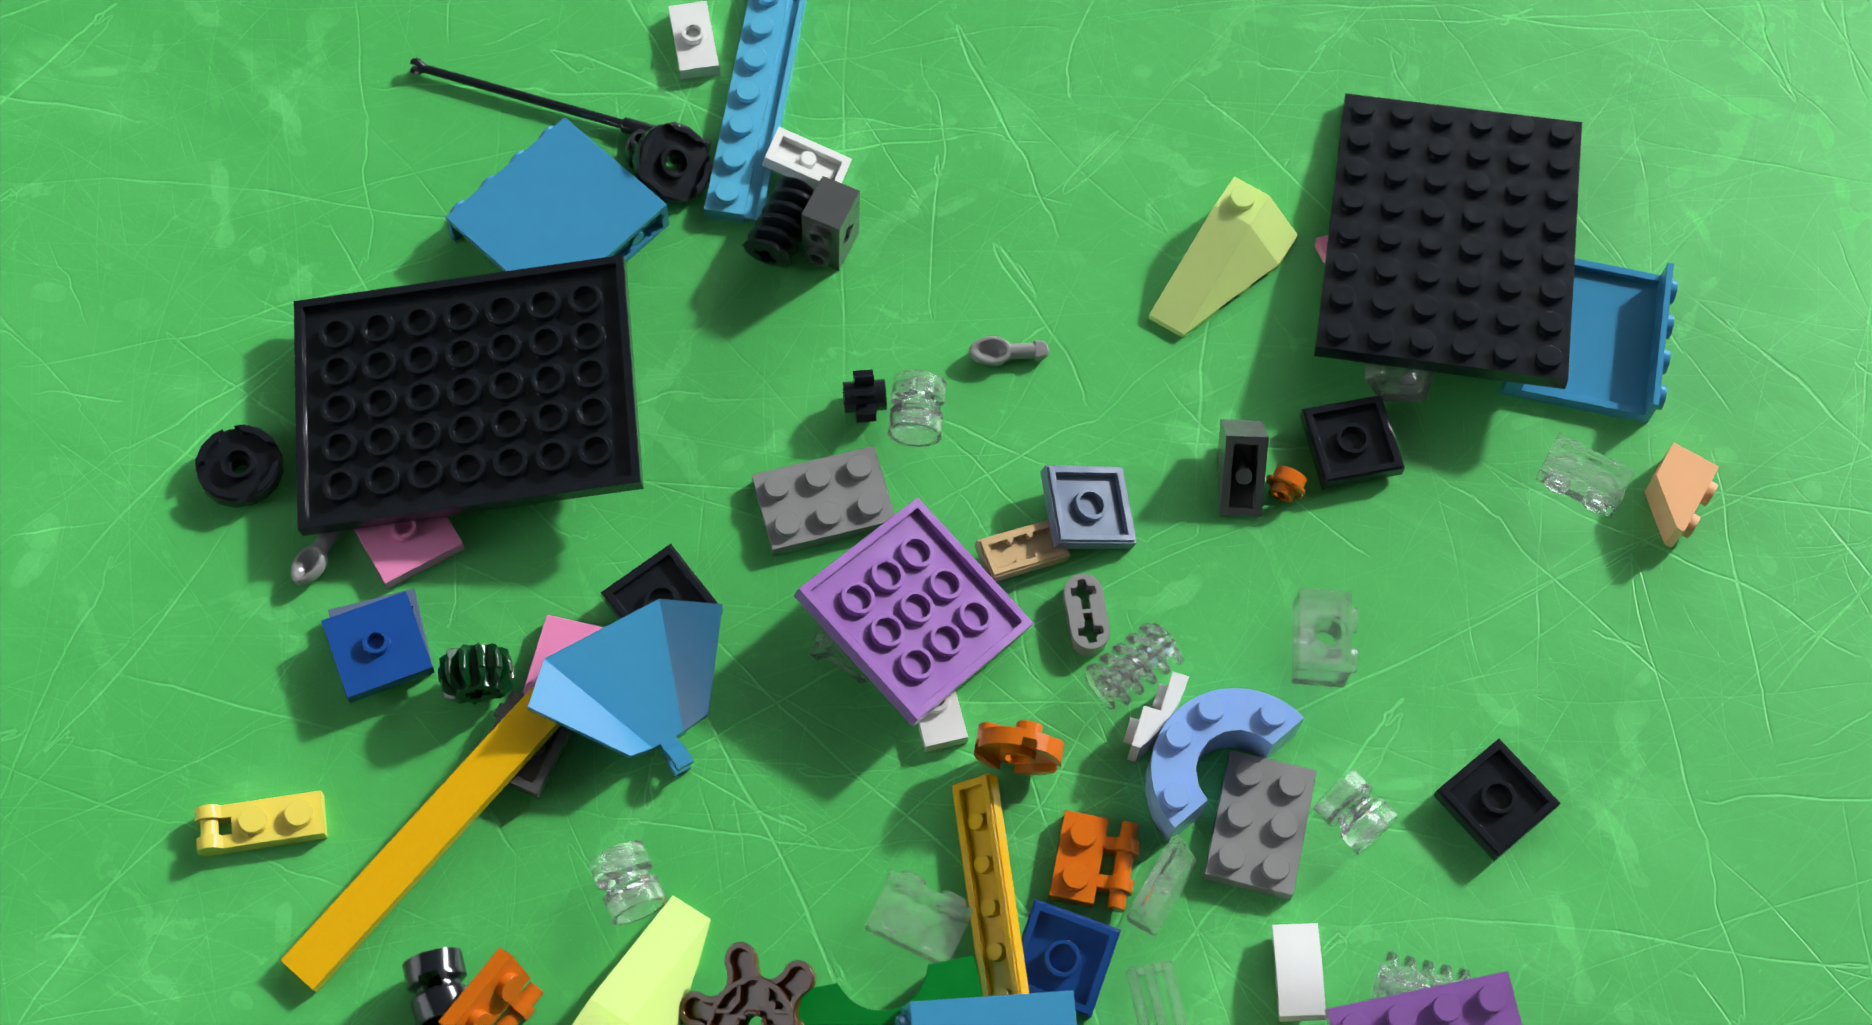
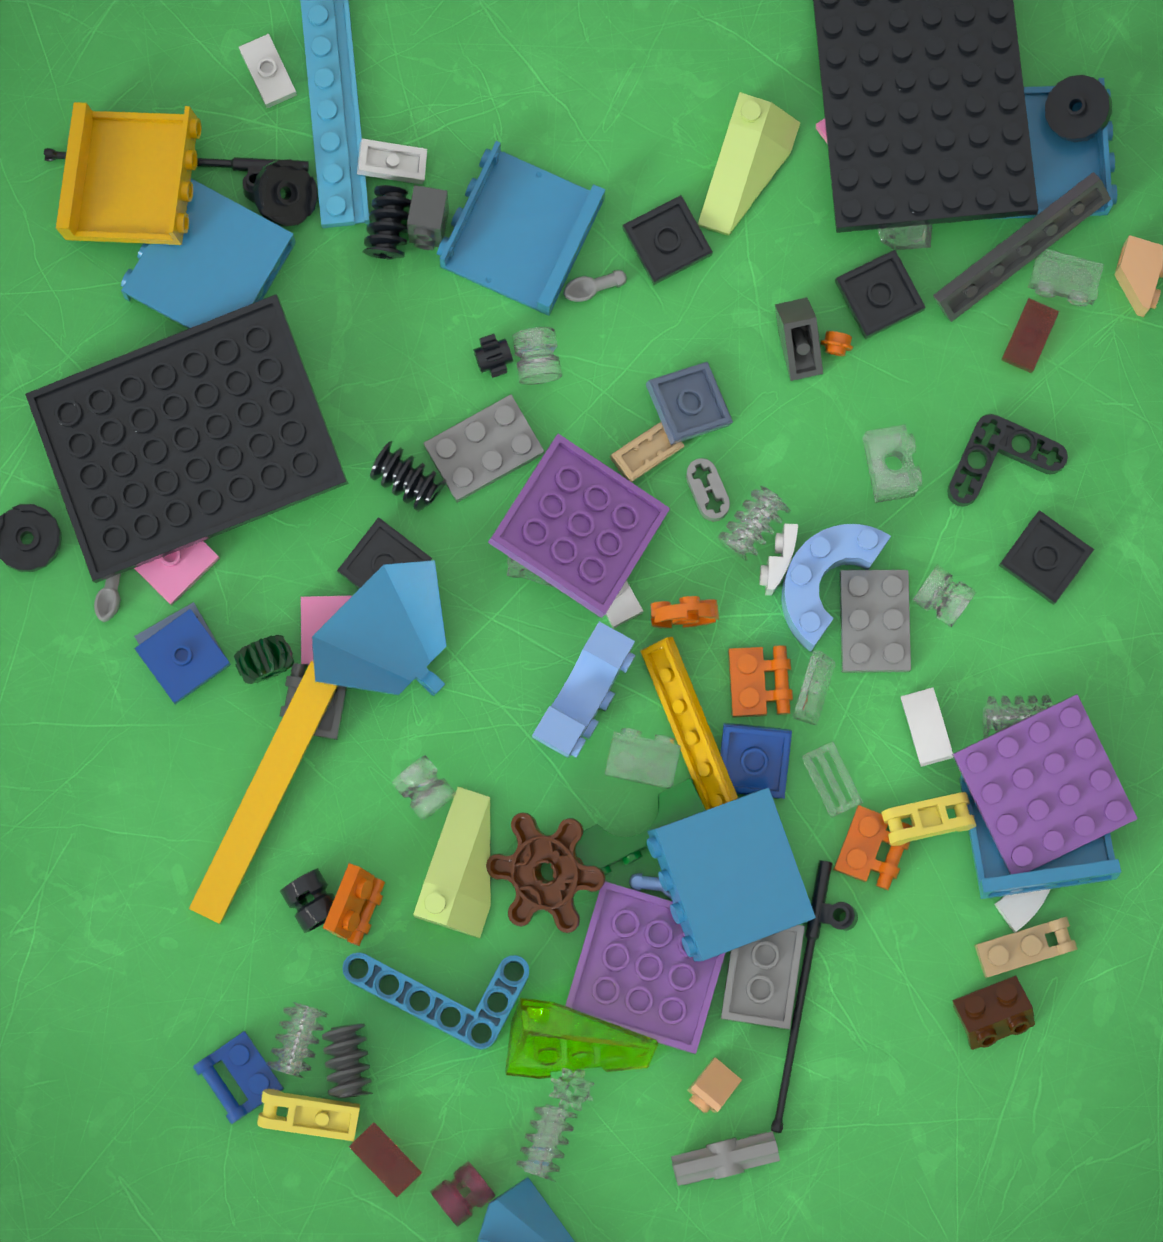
camera: 15 degrees left, 15 degrees up
(261, 823) = (140, 811): light yellow plate -> none
(493, 100) = (128, 176): none -> yellow panel
(716, 508) = (406, 477): none -> black piece
(869, 814) = (585, 692): none -> light blue brick
(934, 271) = (519, 230): none -> dark azure panel
(1108, 321) = (667, 240): none -> black plate
(1465, 650) = (1002, 444): none -> black beam
(1527, 532) = (1030, 335): none -> clear red plate
(1538, 424) = (1022, 247): none -> dark grey plate
(1641, 305) = (1080, 124): none -> black plate

